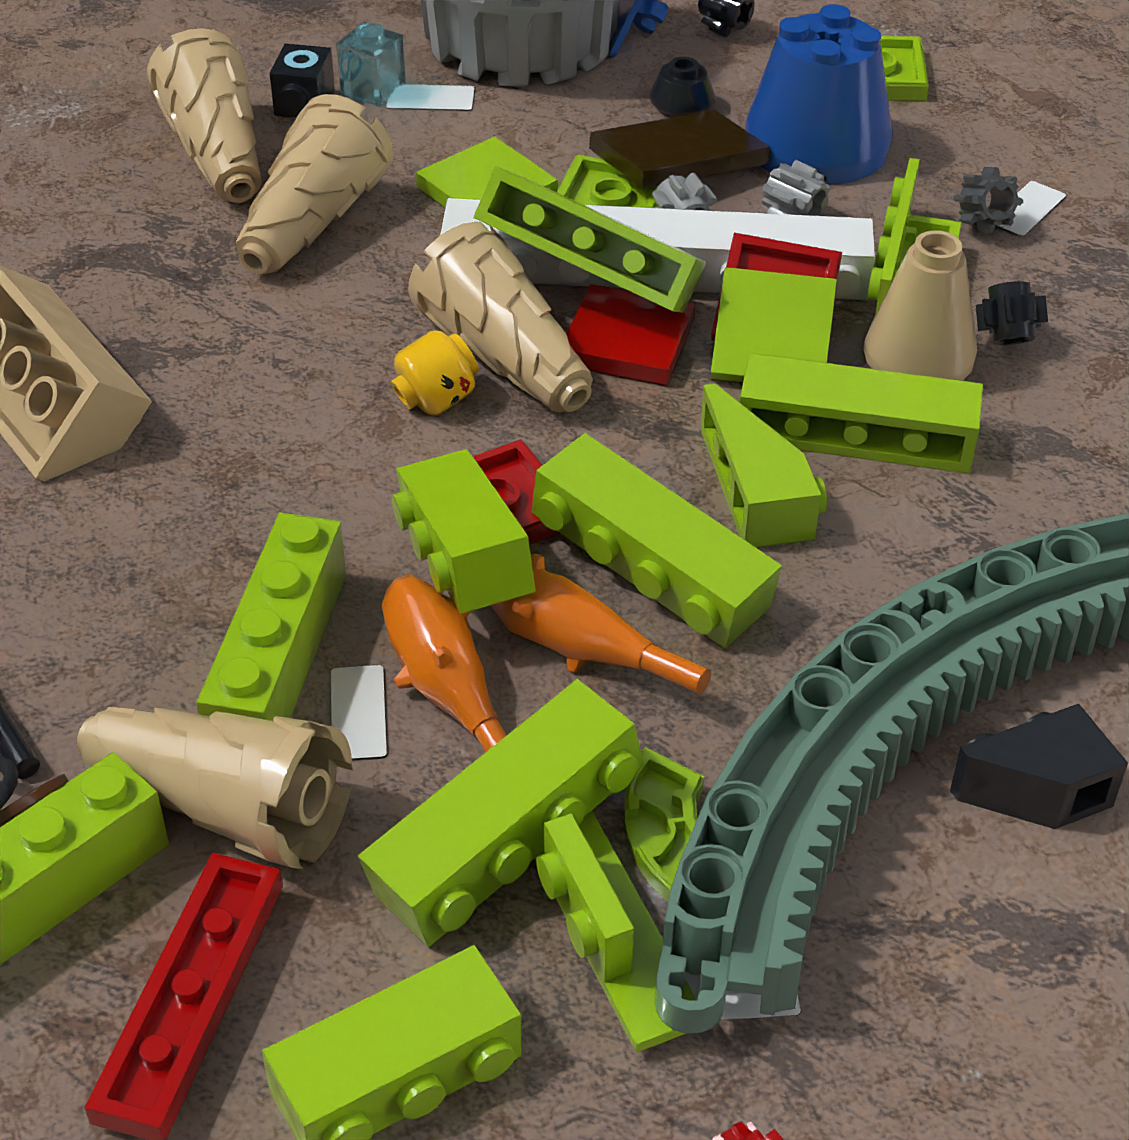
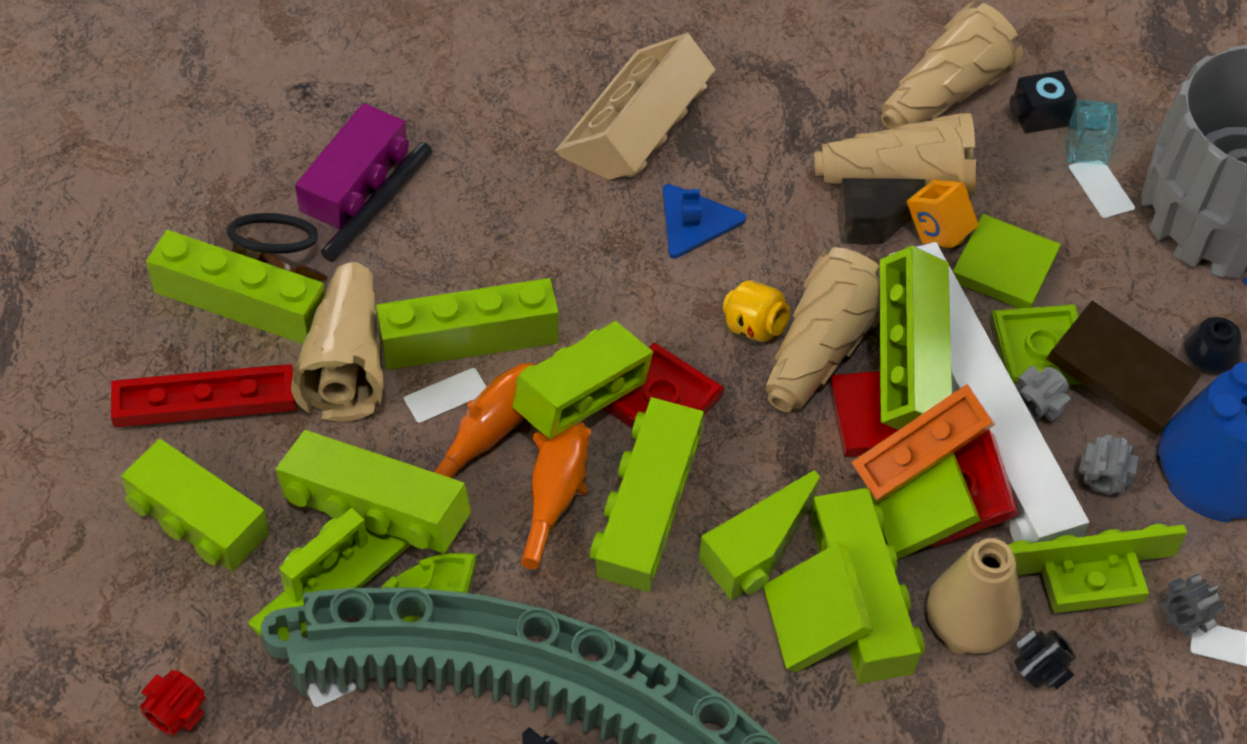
camera: 65 degrees right, 10 degrees up
(243, 393) = (695, 219): none -> blue piece
(352, 241) = (874, 208): none -> clear smoke slope
(406, 186) = (943, 213): none -> light orange brick
(731, 277) = (923, 443): none -> orange plate
(885, 447) = (817, 607): none -> lime tile

